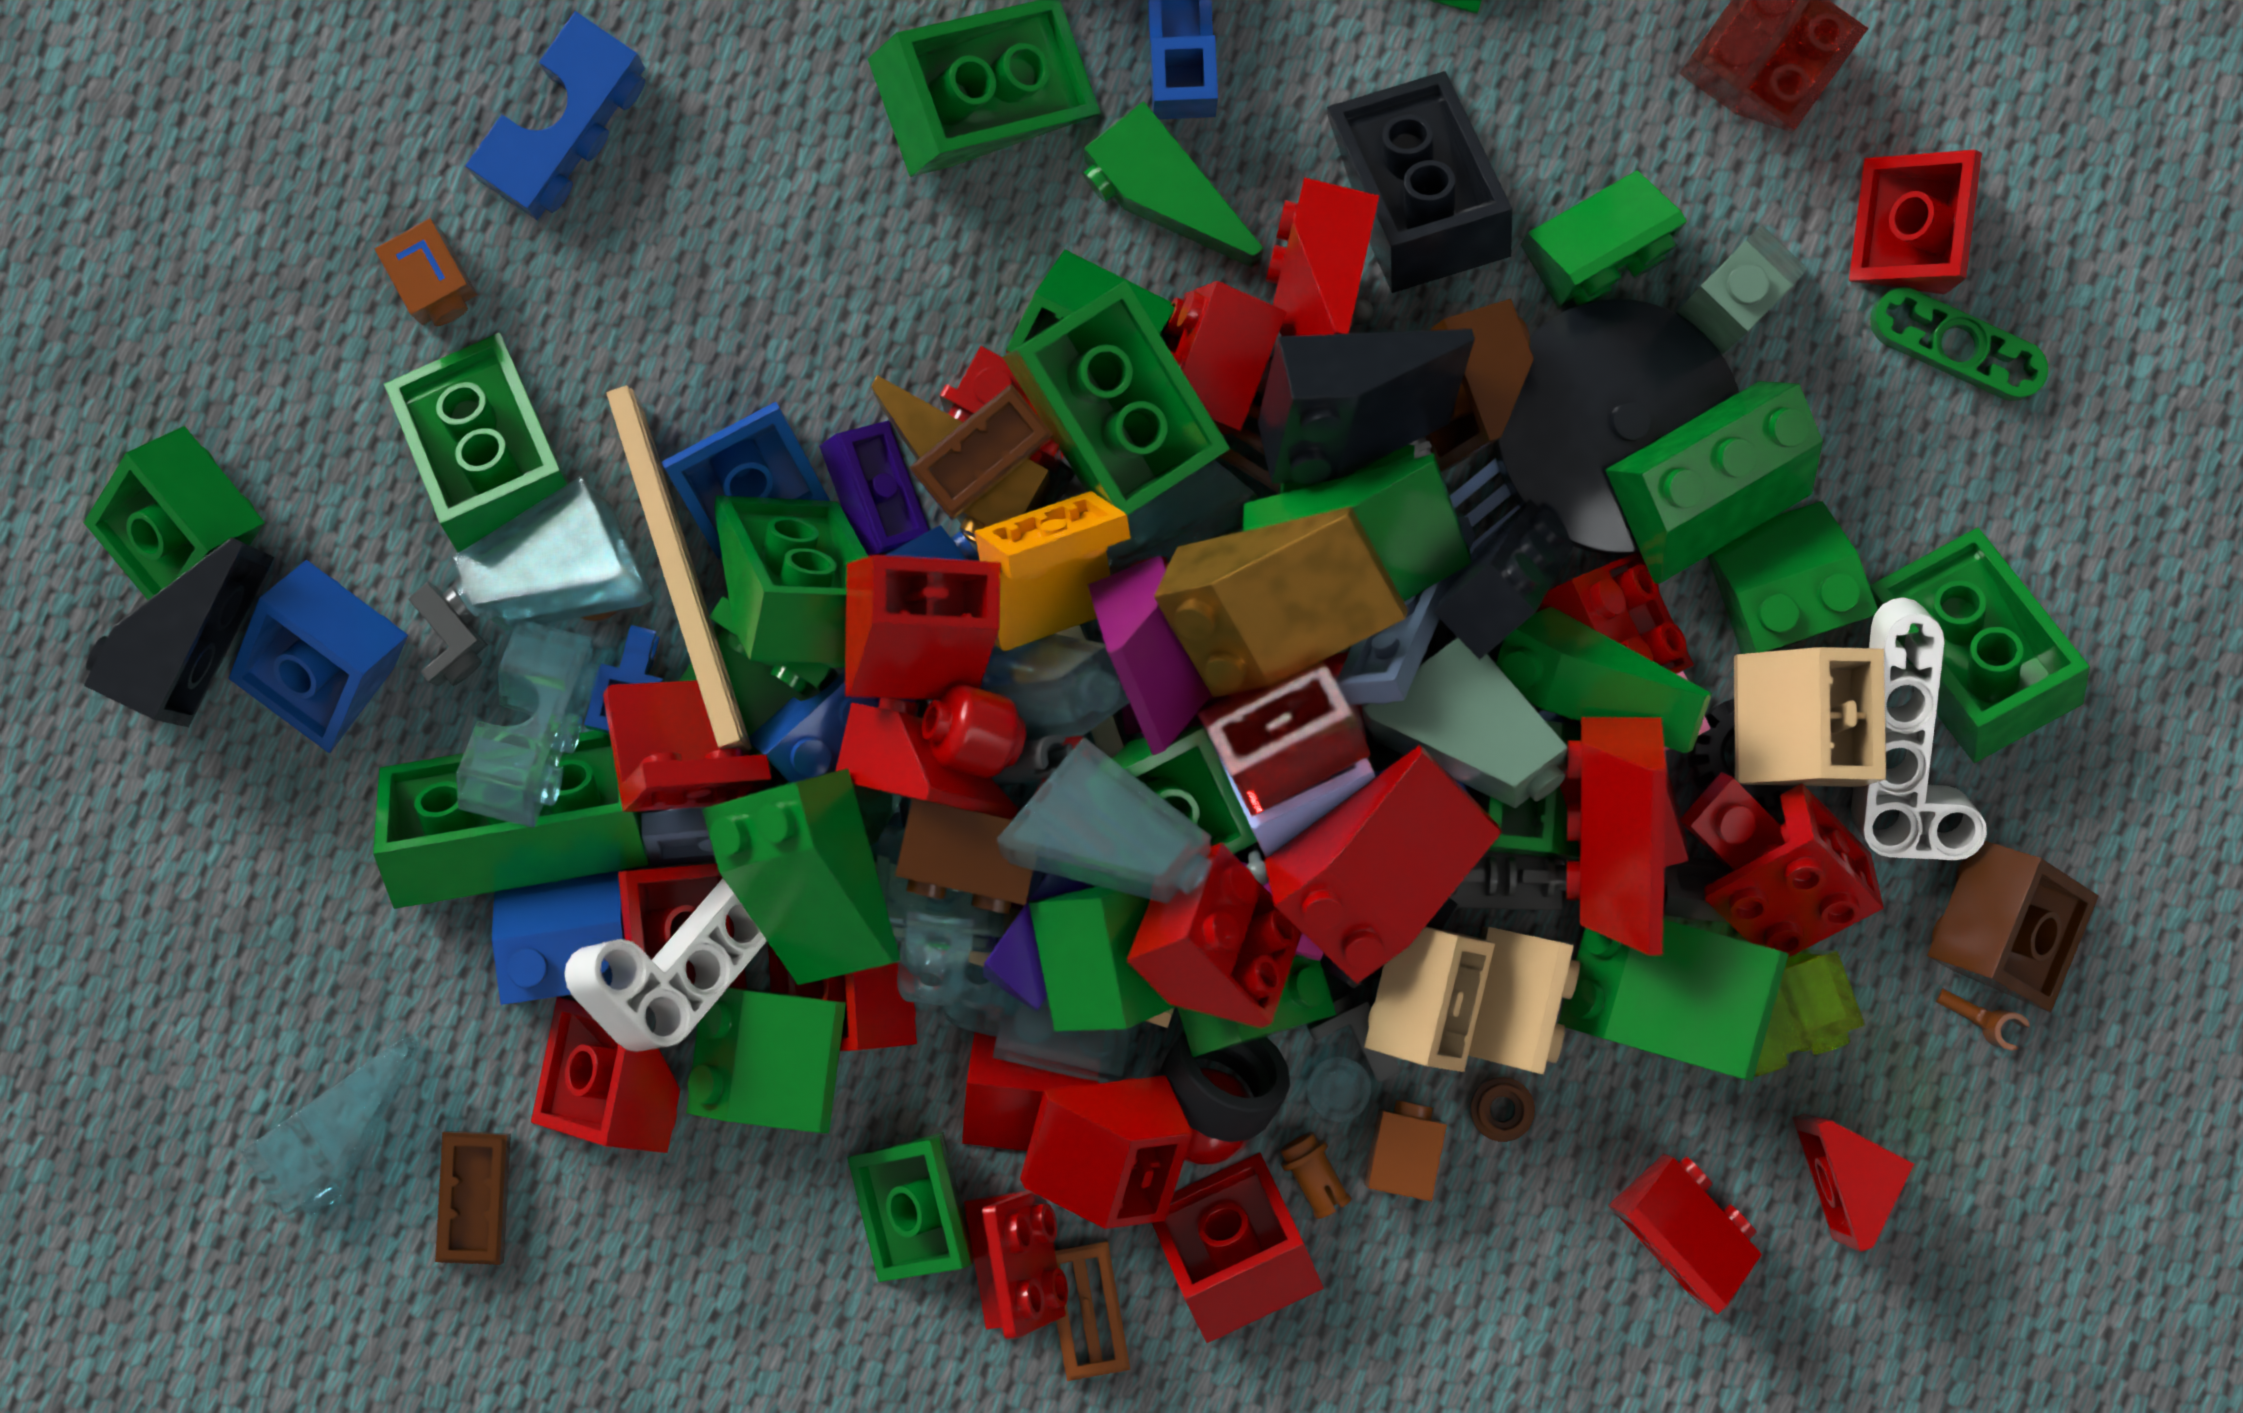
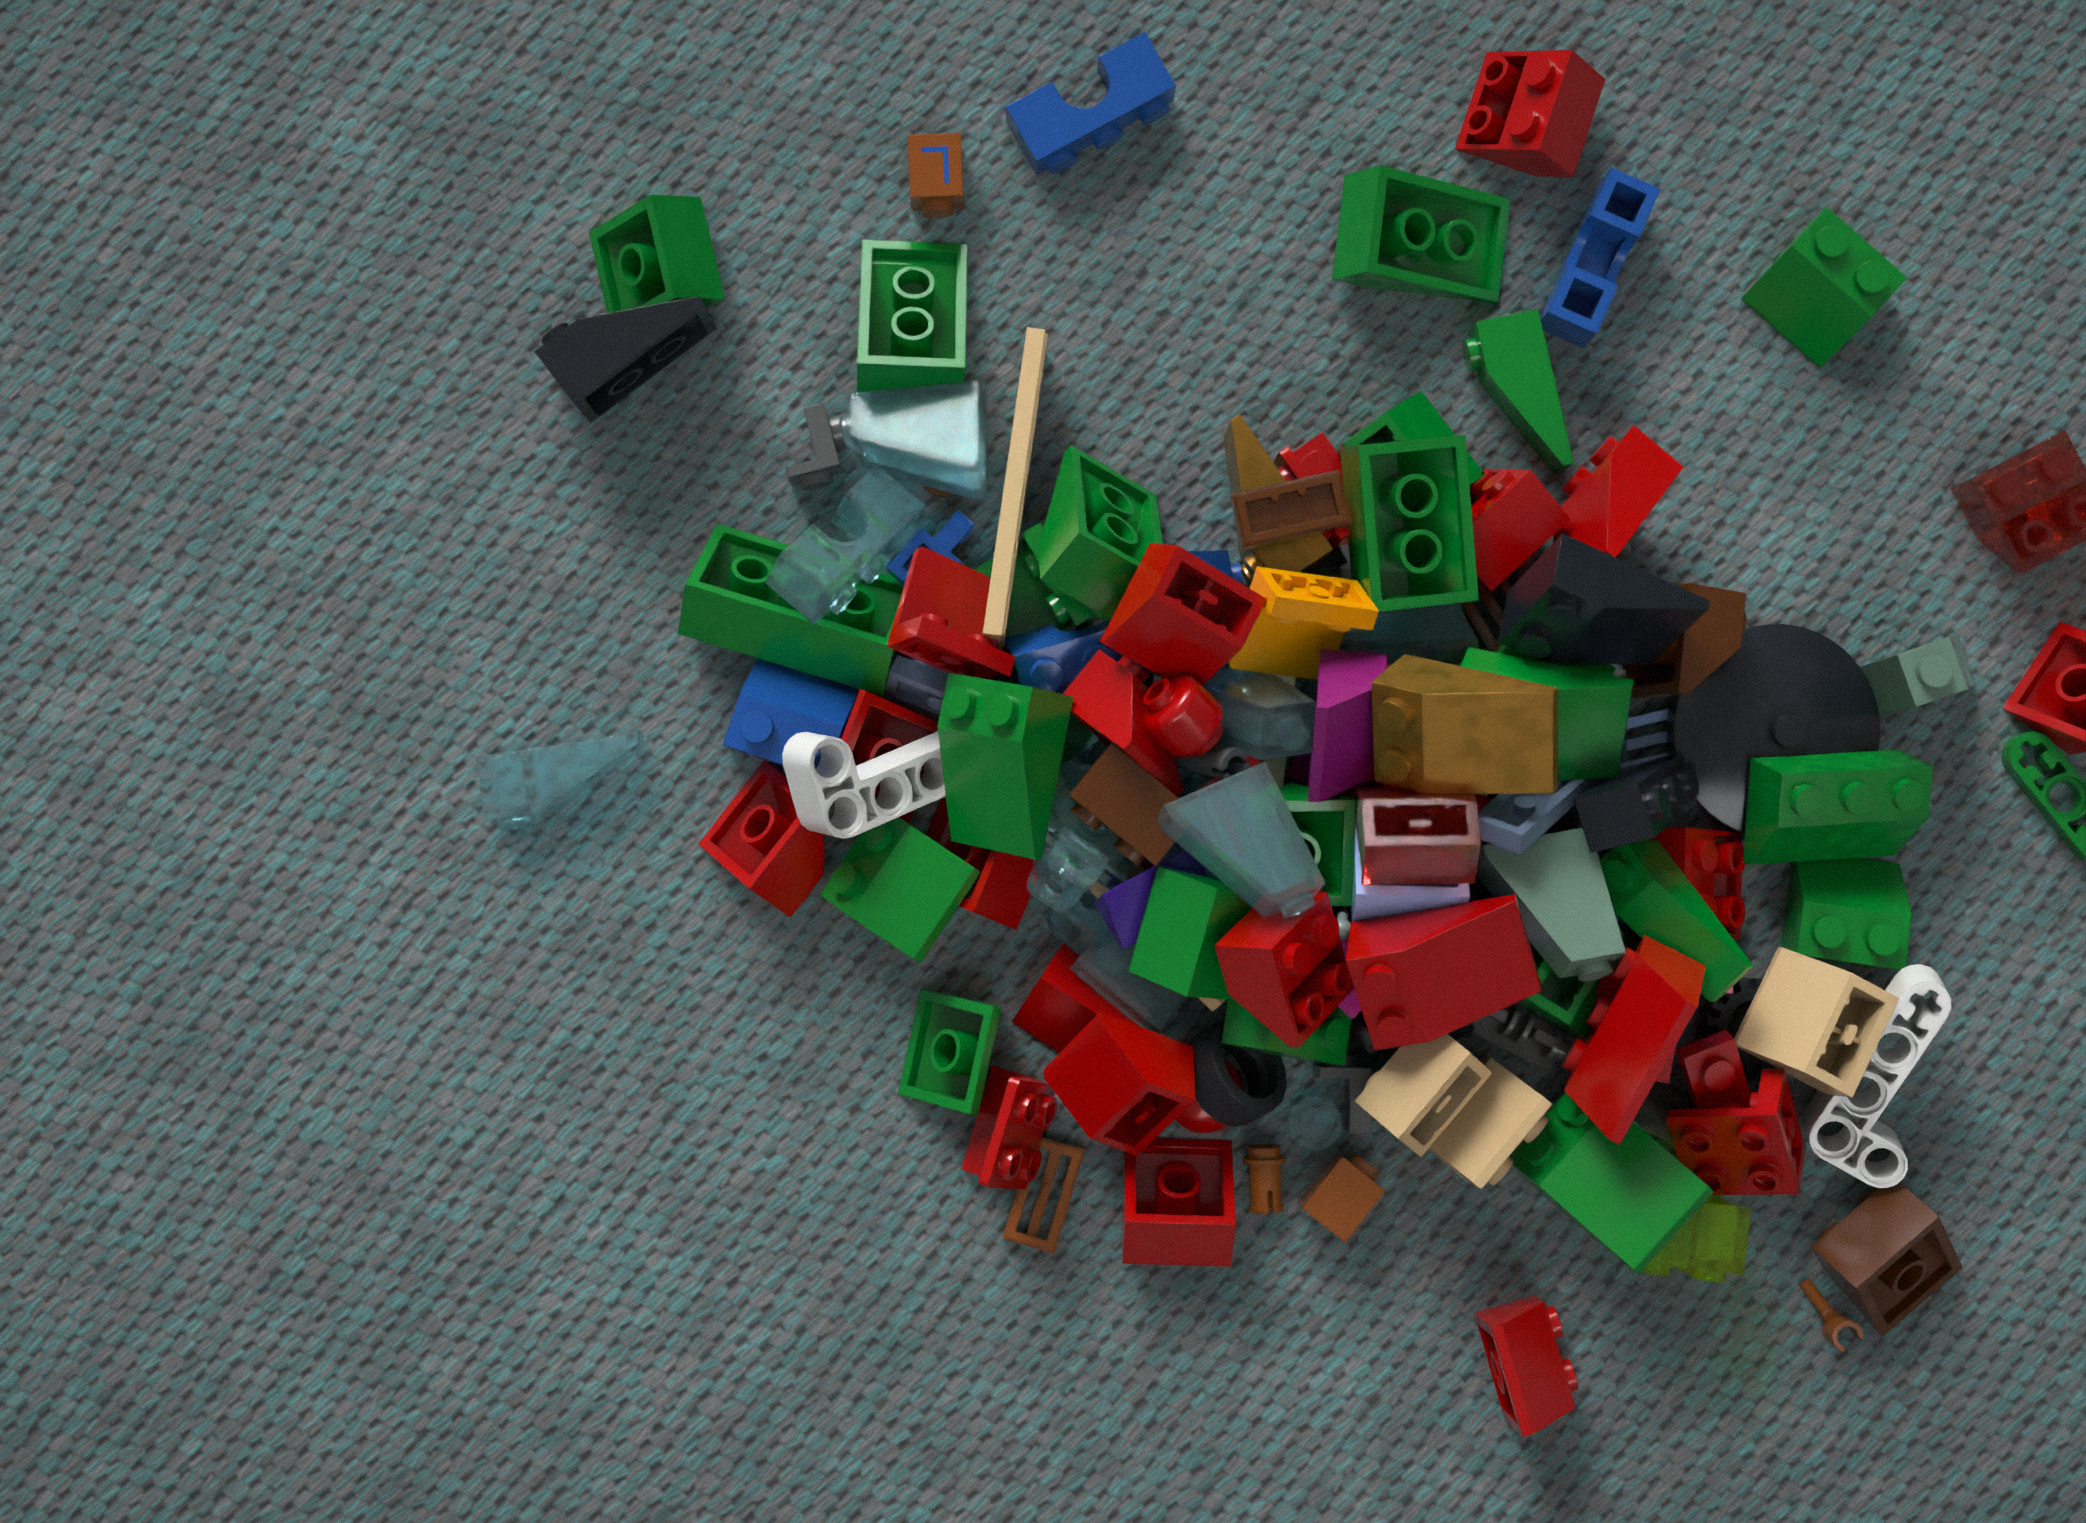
camera: 25 degrees right, 0 degrees up
(316, 654) = (712, 416): blue slope -> none
(473, 1197) = (628, 878): reddish brown plate -> none
(747, 460) = (1106, 429): blue slope -> none
(874, 487) = (1190, 496): dark purple slope -> none
(1433, 181) = (1728, 485): black slope -> none
(1523, 1109) = (1443, 1212): reddish brown plate -> none
(1601, 237) = (1834, 583): green slope -> none
(1852, 1179) = (1671, 1385): red slope -> none
(2002, 652) = (1985, 1050): green slope -> none

